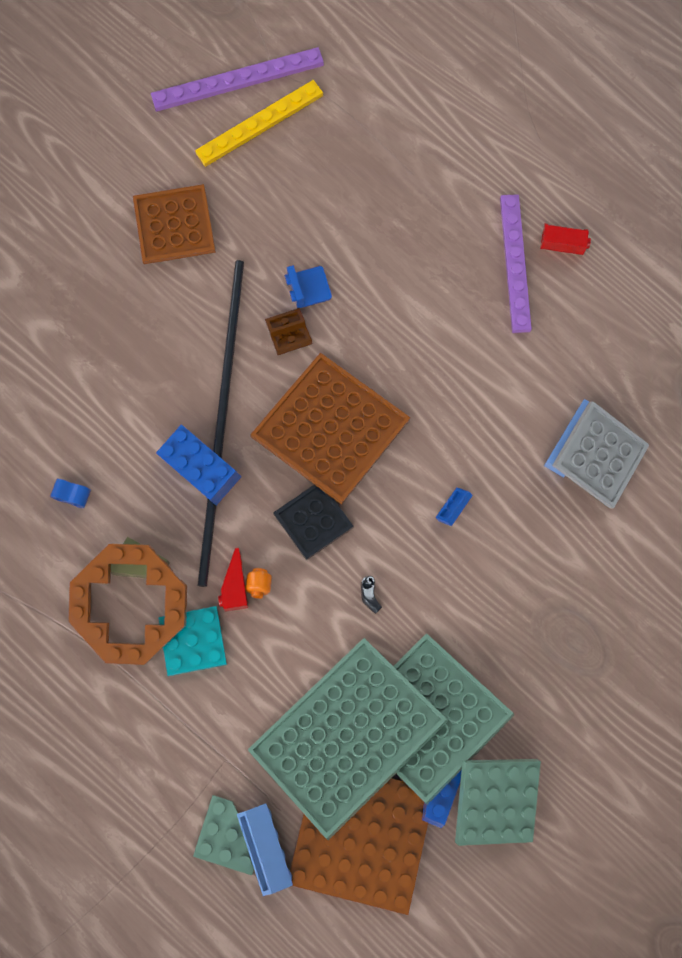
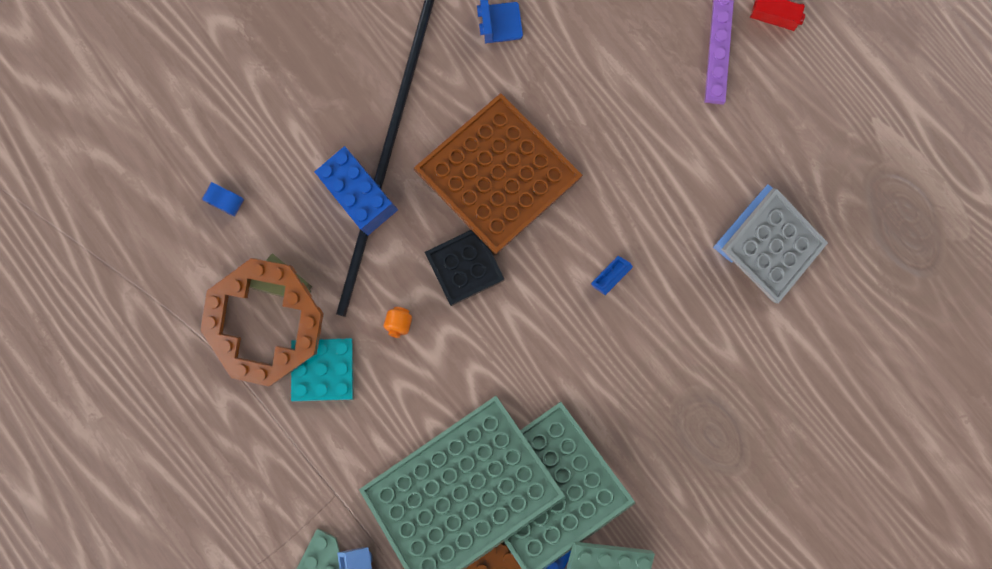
camera: 15 degrees right, 5 degrees up
(233, 590) = (370, 326): red slope -> none
(288, 331) = (472, 66): reddish brown slope -> none
(367, 594) = (507, 351): black arm -> none

